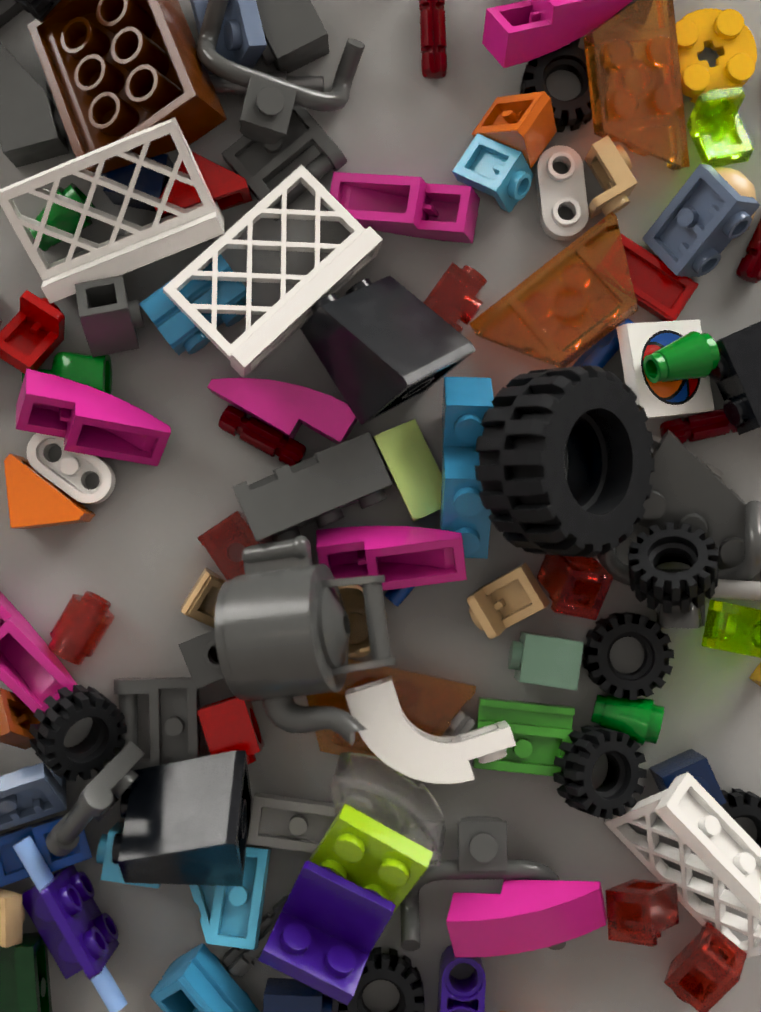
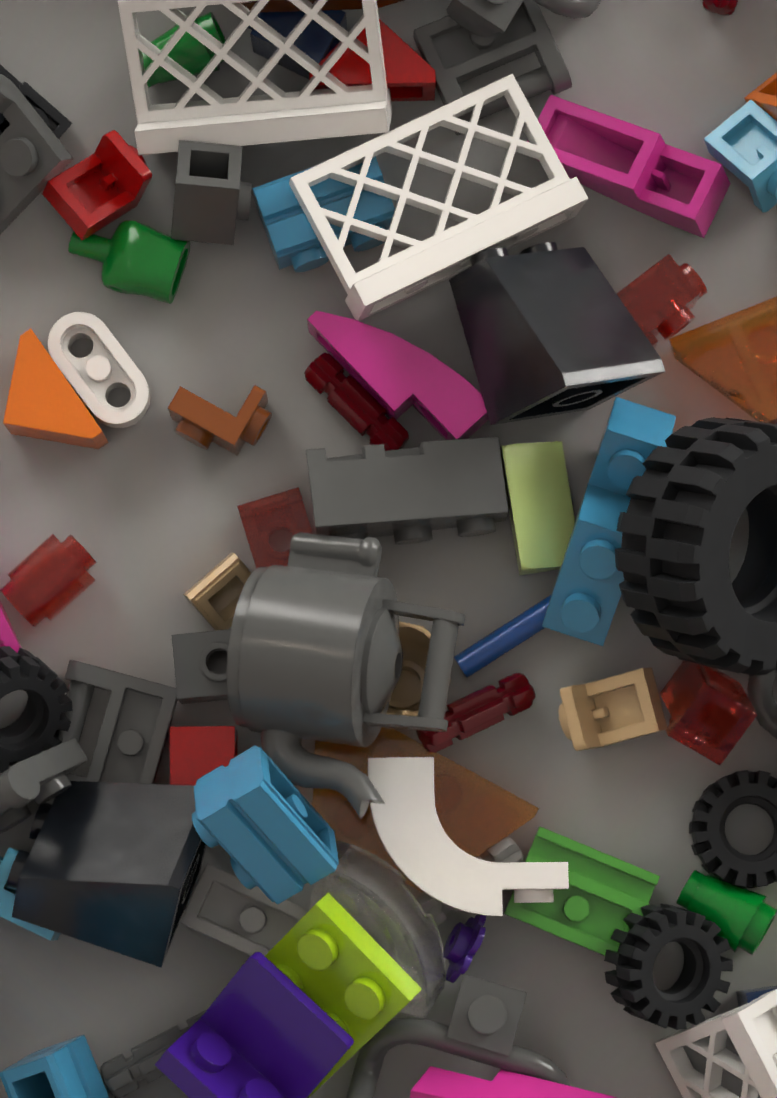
camera: 20 degrees right, 5 degrees down
(89, 419) = (143, 316): dark pink slope -> none
(158, 483) = (206, 423): none -> dark orange bracket
(234, 913) = (136, 999): medium azure wing -> none
(284, 771) = (264, 826): none -> dark azure brick
(401, 553) = (499, 607): dark pink slope -> none
(417, 627) = (481, 711): none -> dark red axle
(450, 802) = (463, 945): none -> dark purple plant
(546, 660) = (640, 800): sand green brick -> none

